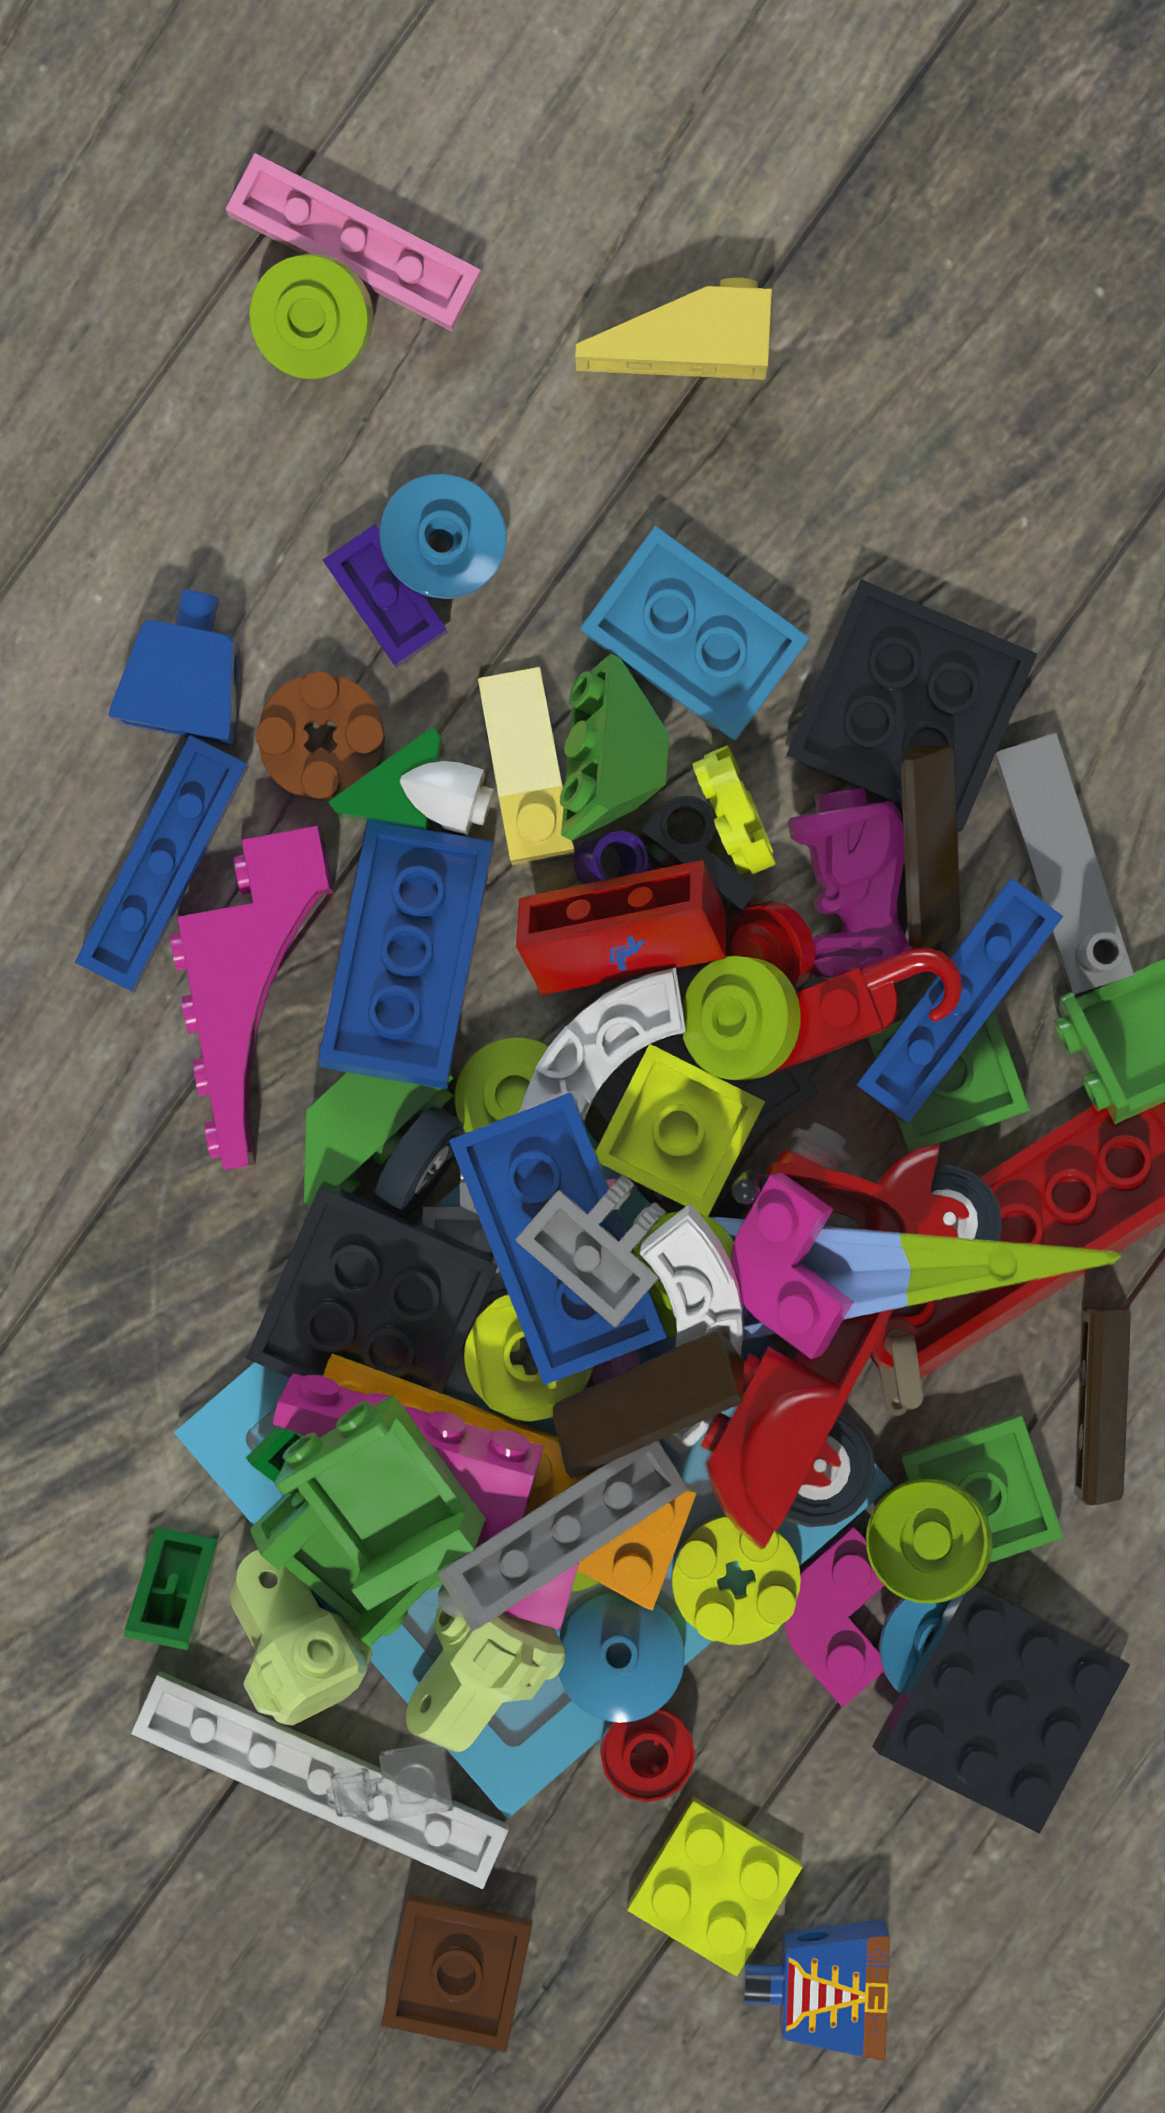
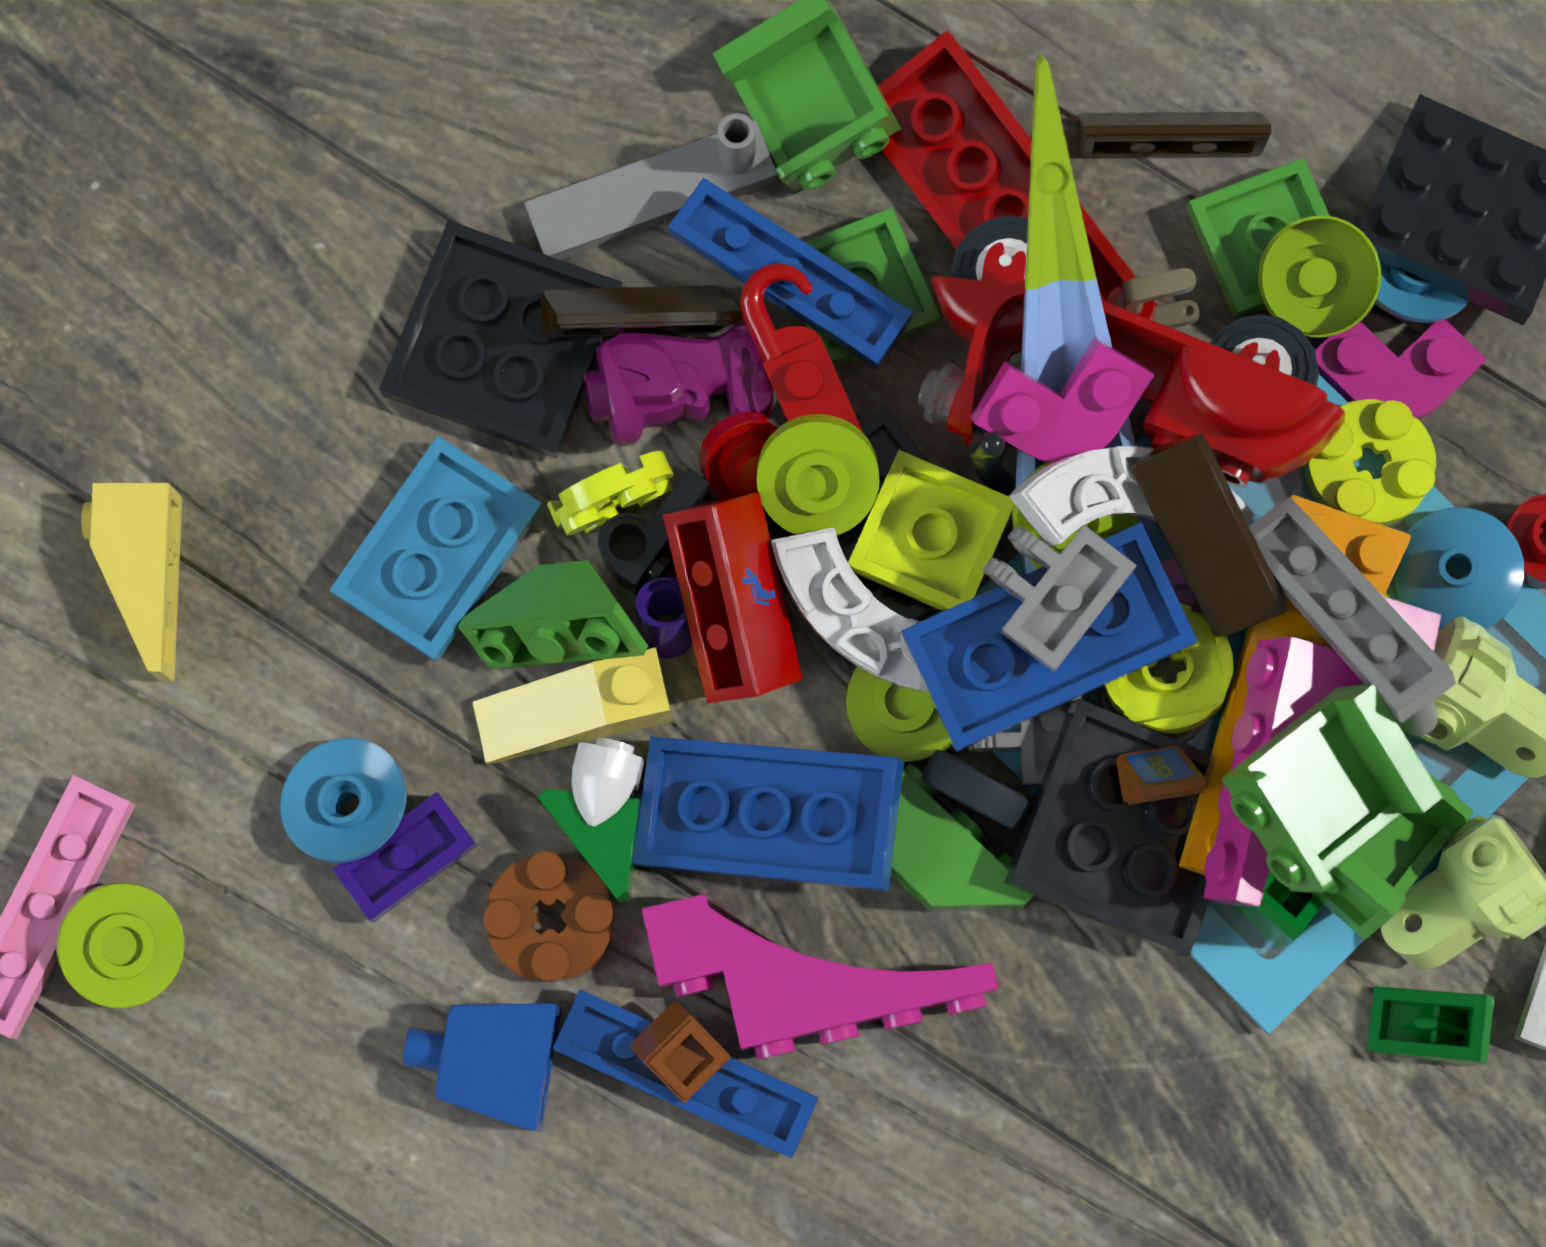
camera: 85 degrees left, 10 degrees down
(179, 857) = (679, 1051): none -> dark orange slope
(416, 1338) = (1158, 775): none -> slope

